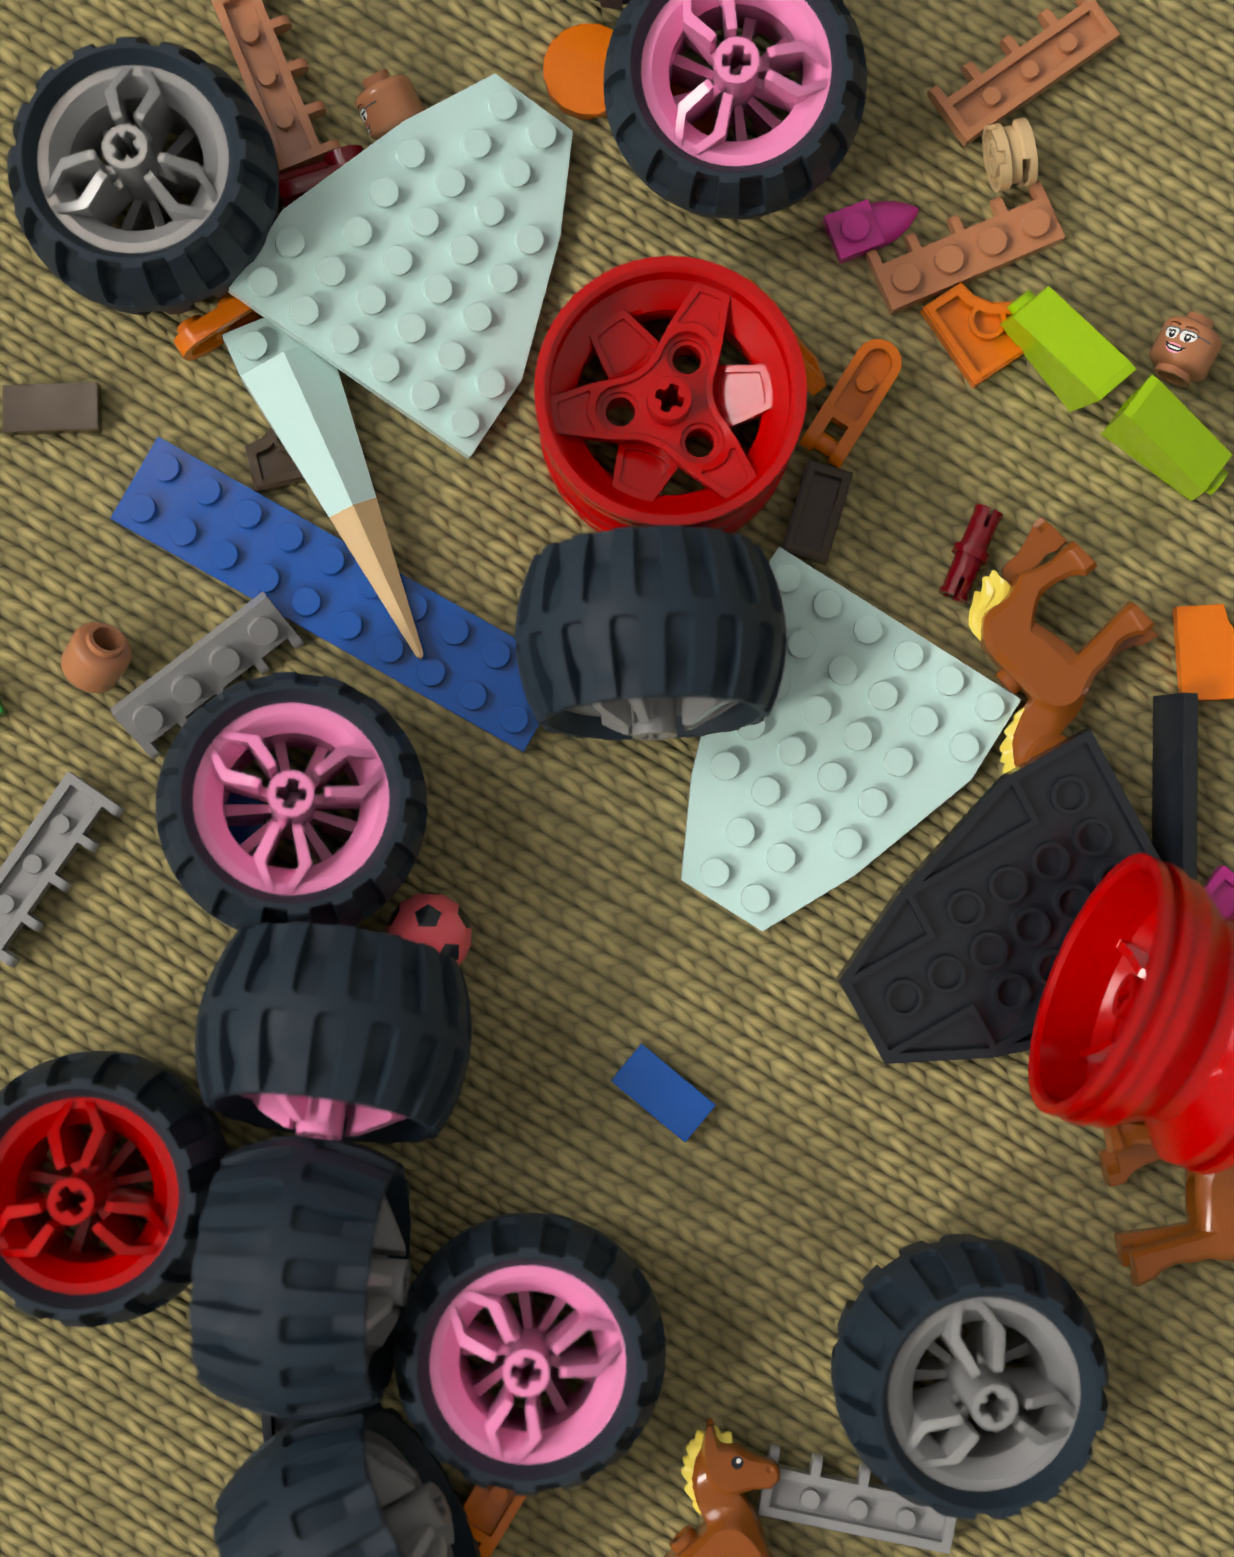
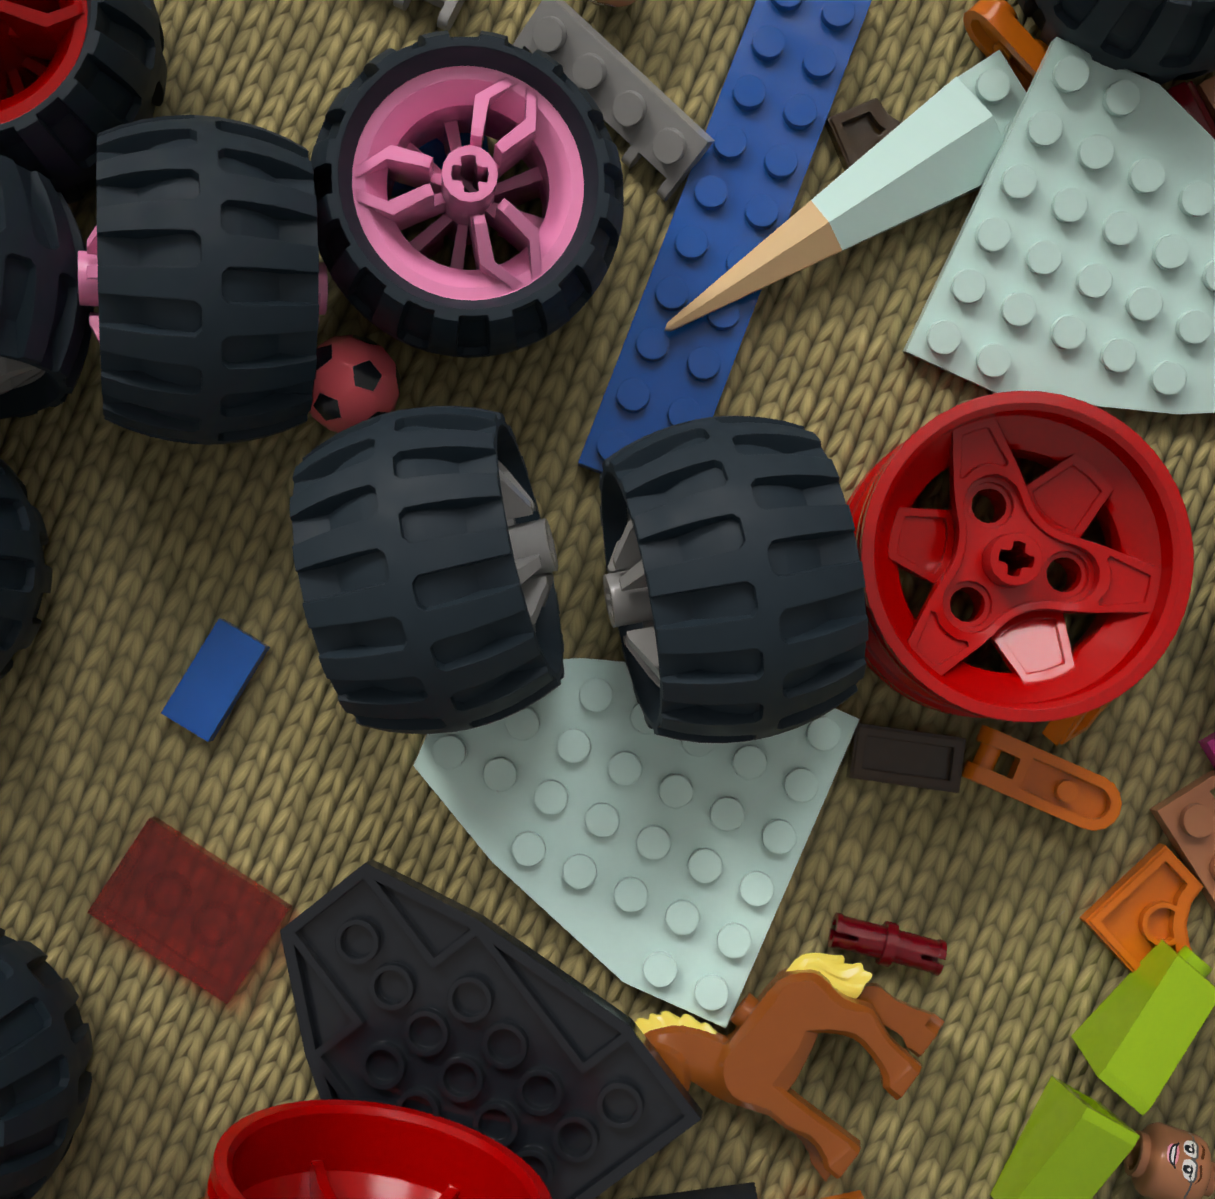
camera: 80 degrees right, 0 degrees up
(606, 879) = (427, 571): none -> black wheel
(856, 1141) = (190, 909): none -> clear red tile

